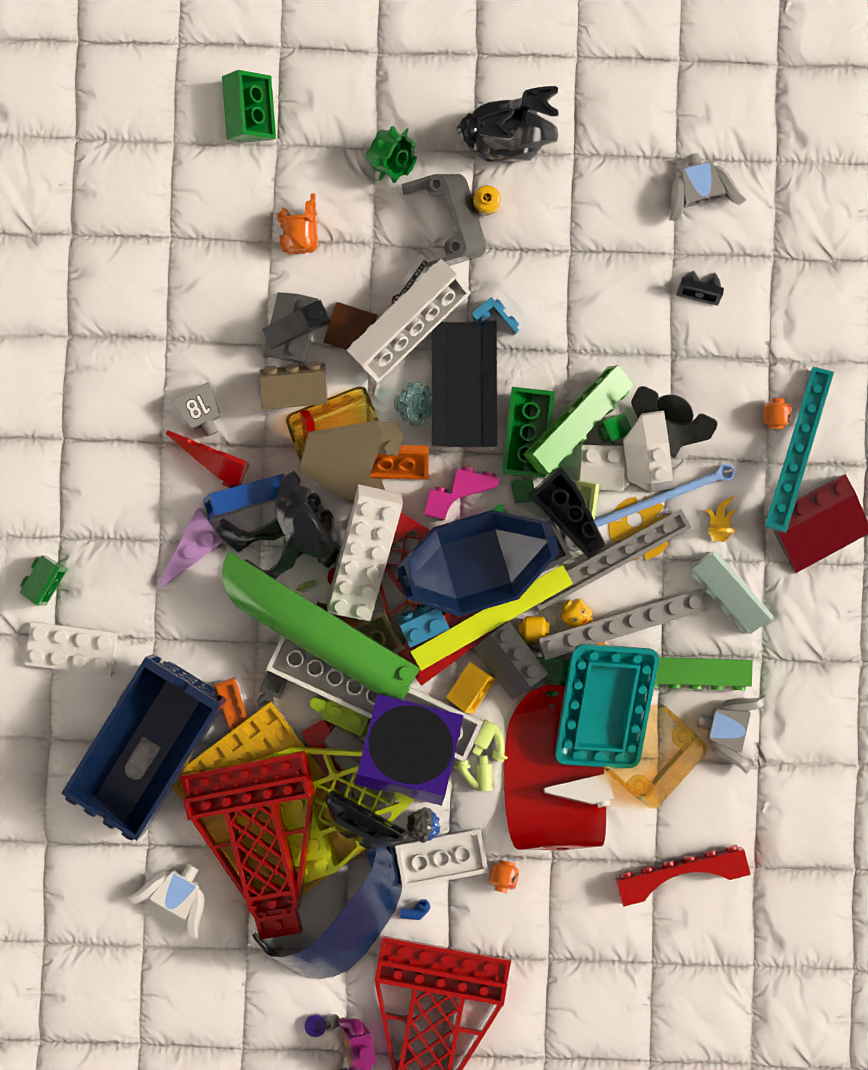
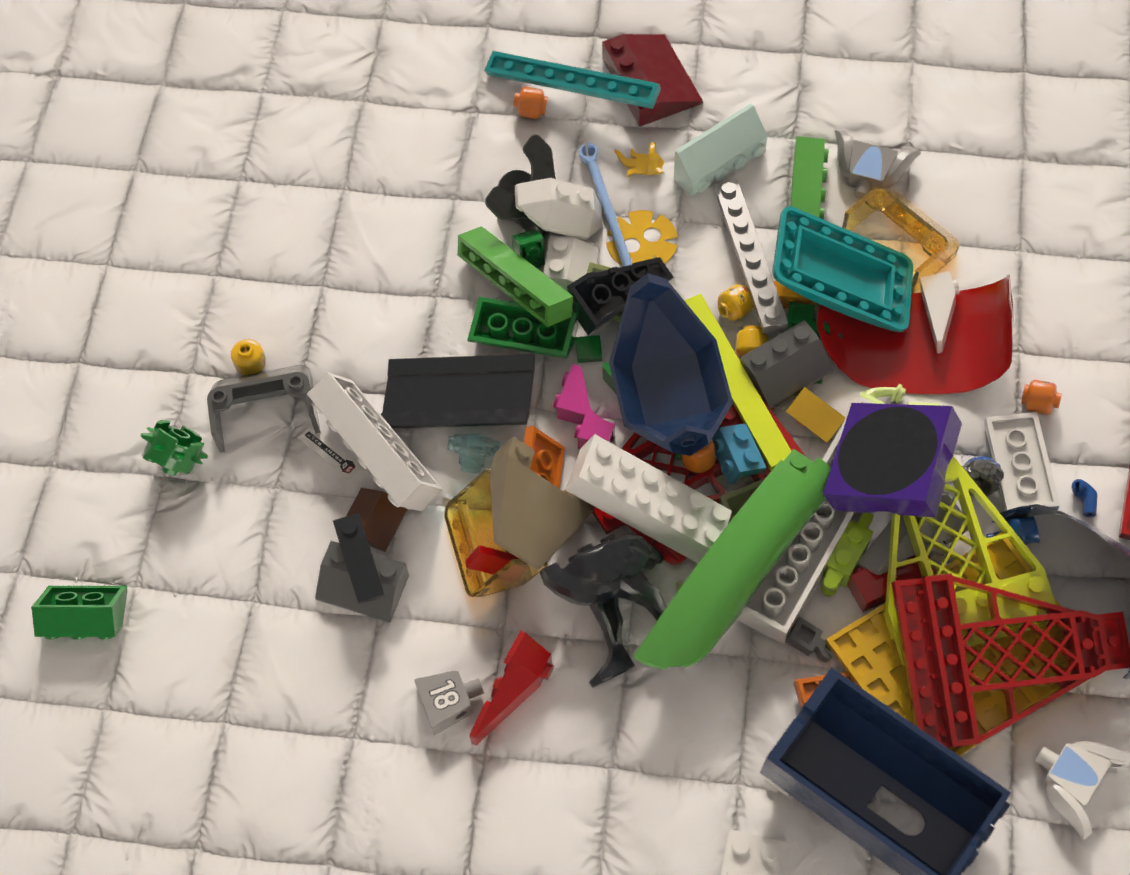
camera: 85 degrees left, 25 degrees down
(195, 544) = (617, 717): lavender wing -> none
(242, 497) = (565, 652): blue slope -> none
(293, 386) = (433, 578): dark tan slope -> none
(300, 229) = (243, 560): orange helmet -> none
(362, 824) = (986, 517): black wedge -> none
(484, 312) = (374, 357): dark azure bracket -> none
(511, 127) = (172, 320): black animal -> none
(621, 554) = (665, 245): light grey plate -> none
(638, 886) = (1048, 263): red arch -> none
(700, 185) = (272, 153): light grey torso -> none
(707, 291) = (387, 162): black tile -> none

